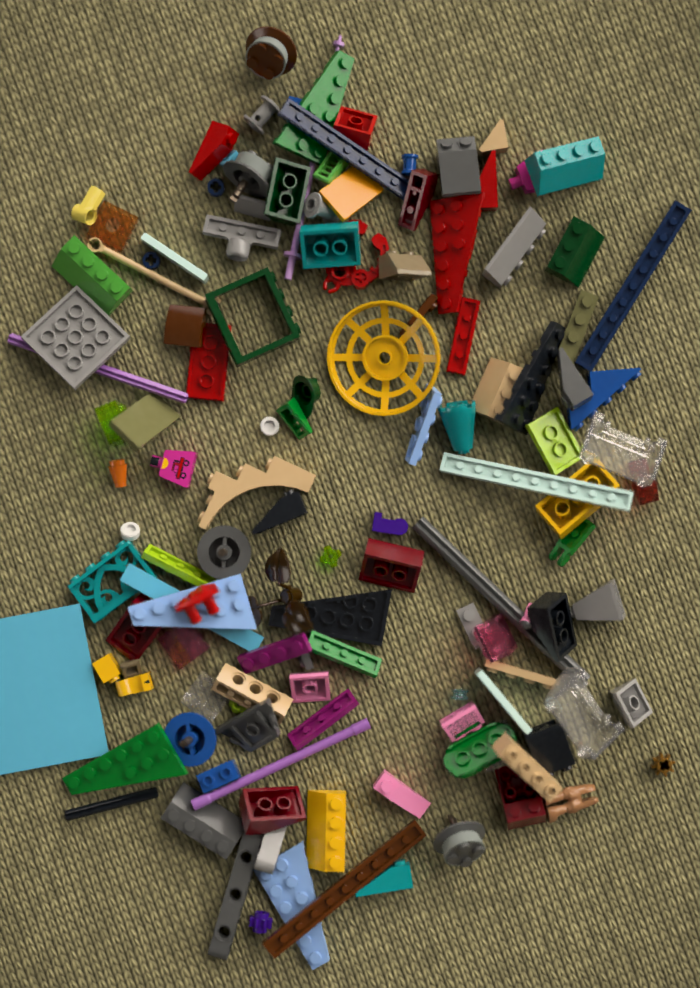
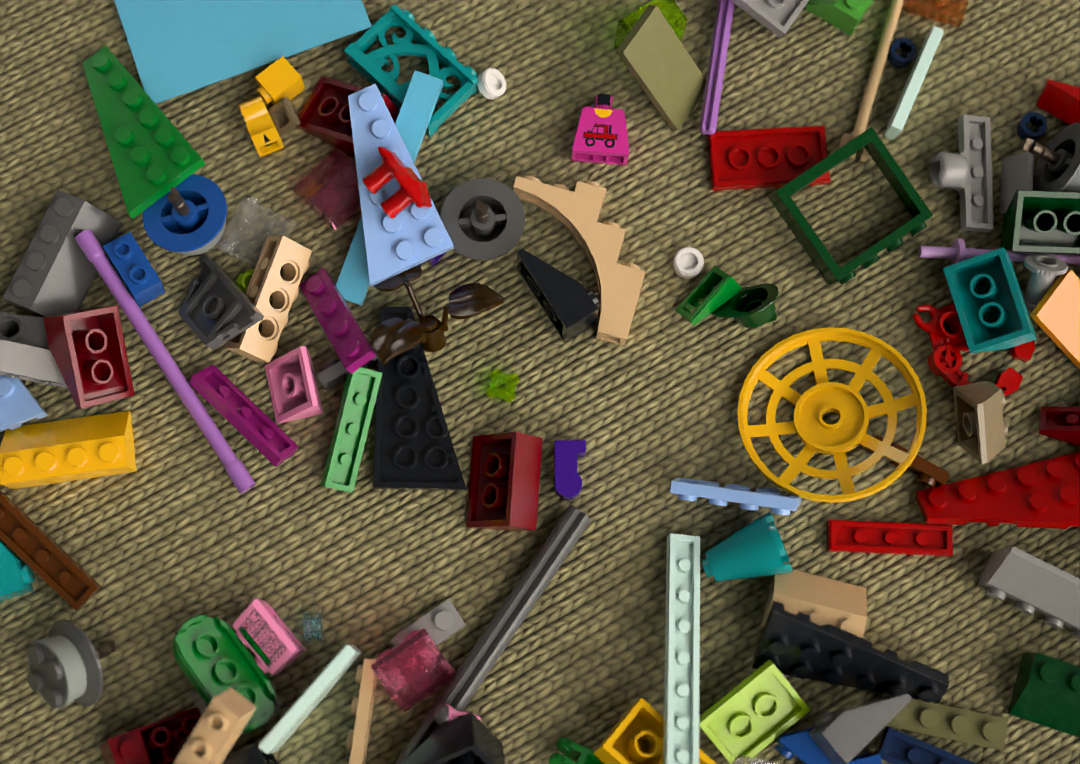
camera: 70 degrees right, 10 degrees down
(112, 803) = (75, 123): black axle -> none
(118, 471) = (577, 54): orange cone -> none
(176, 566) = (450, 153): lime plate -> none
(185, 325) = (816, 111): reddish brown slope -> none
(401, 794) = (138, 558): bright pink slope -> none

